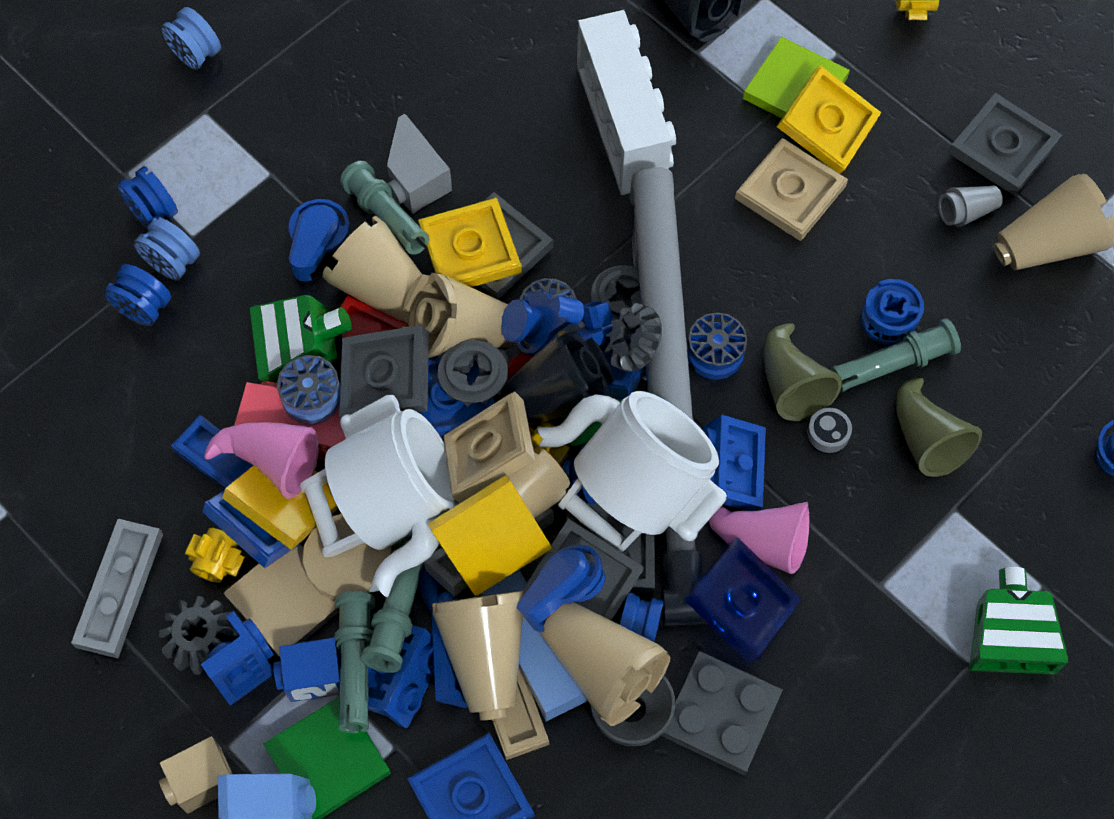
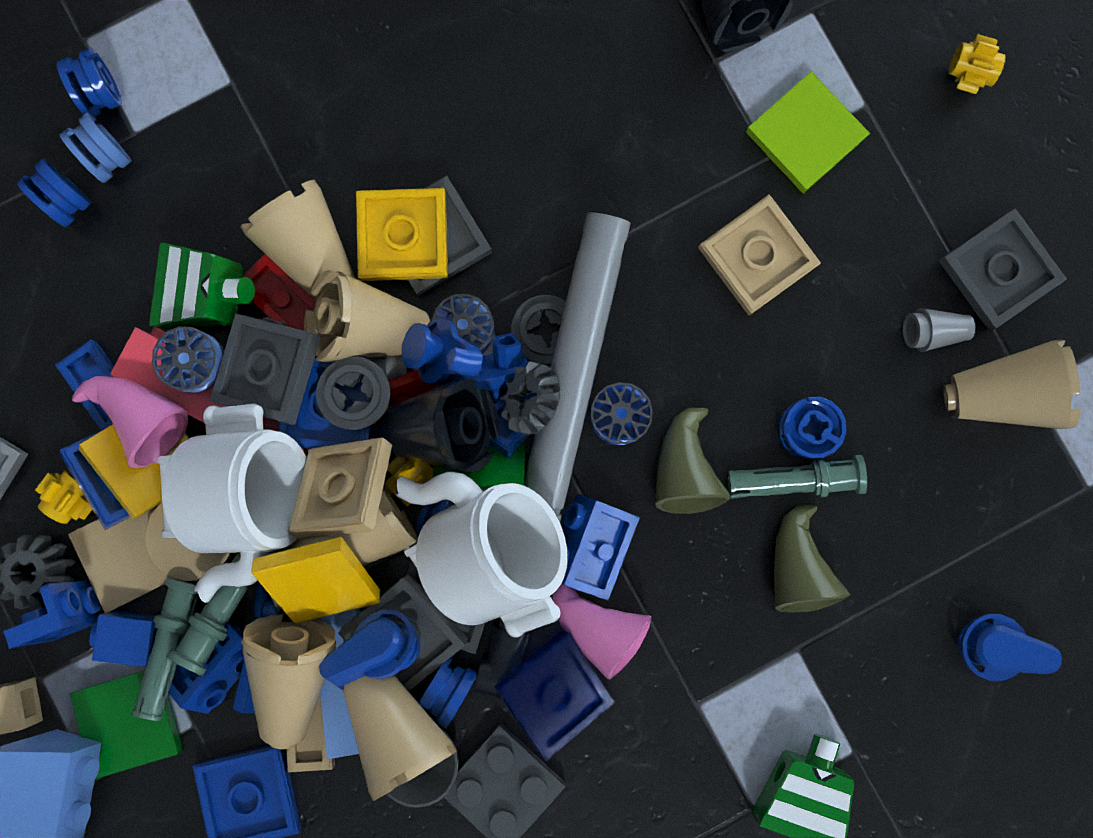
camera: 20 degrees right, 20 degrees up
(314, 235) = (252, 172): blue piece -> none
(376, 198) = (323, 149): sand green pin -> none
(415, 168) = (372, 123): light grey slope -> none
(623, 97) = (614, 108): white brick -> none
(829, 119) = (826, 188): yellow tile -> none
(829, 430) = (703, 535): light grey tile -> none

